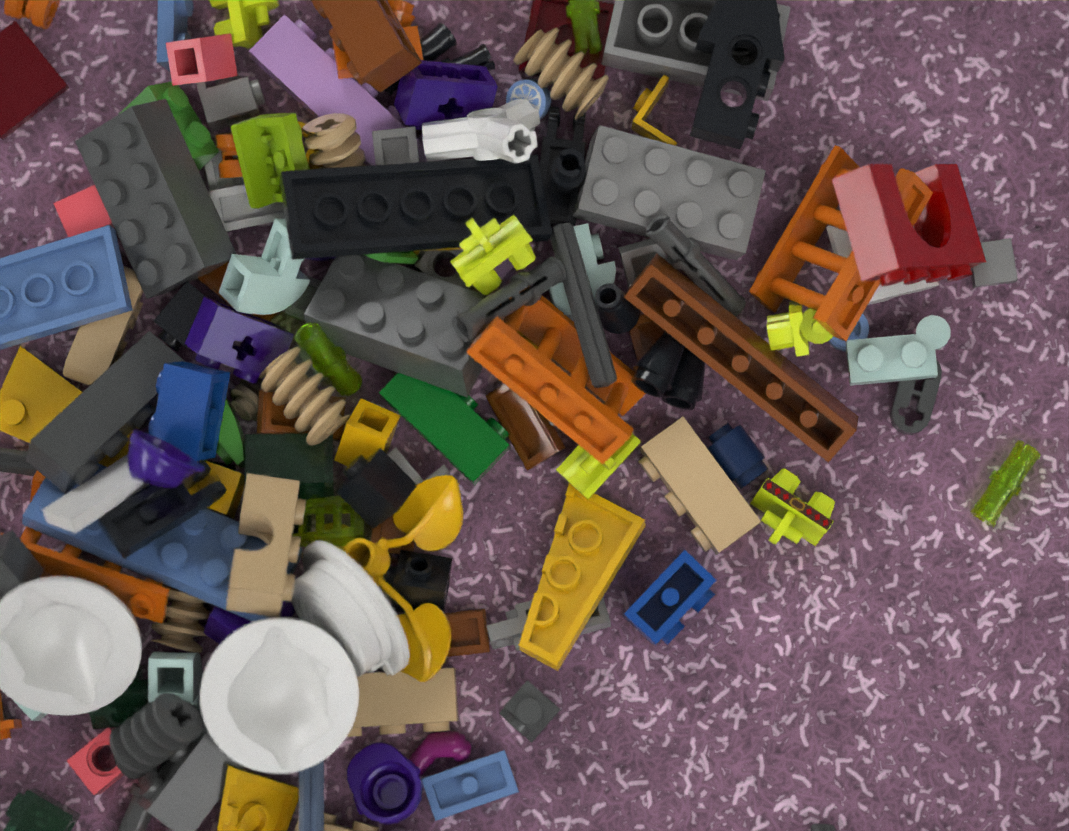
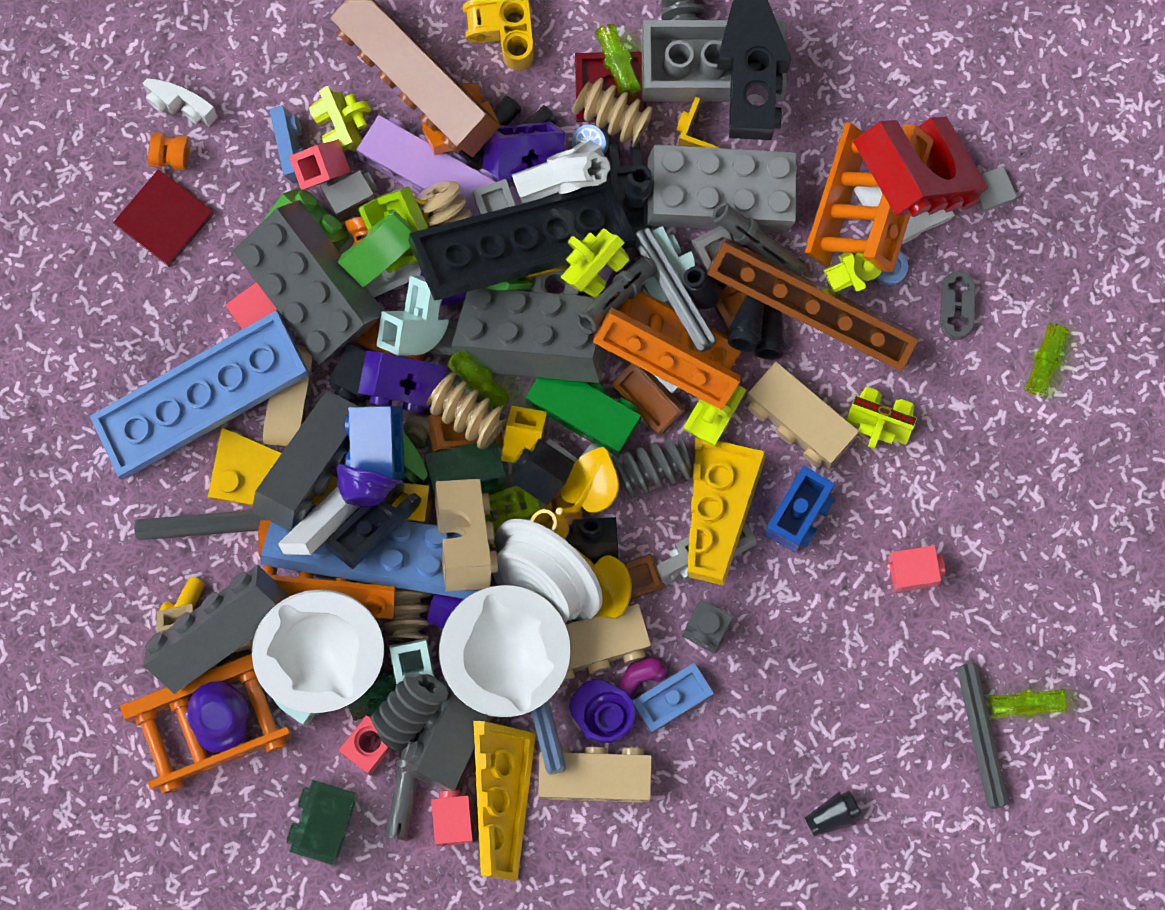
camera: 15 degrees left, 5 degrees down
(242, 181) = (378, 250): none -> bright green slope
(509, 508) = (652, 466): none -> dark grey piece
(737, 454) = (826, 384): dark blue brick -> none
(791, 698) = (916, 568): none -> coral brick
(898, 356) = (936, 277): light aqua hinge -> none

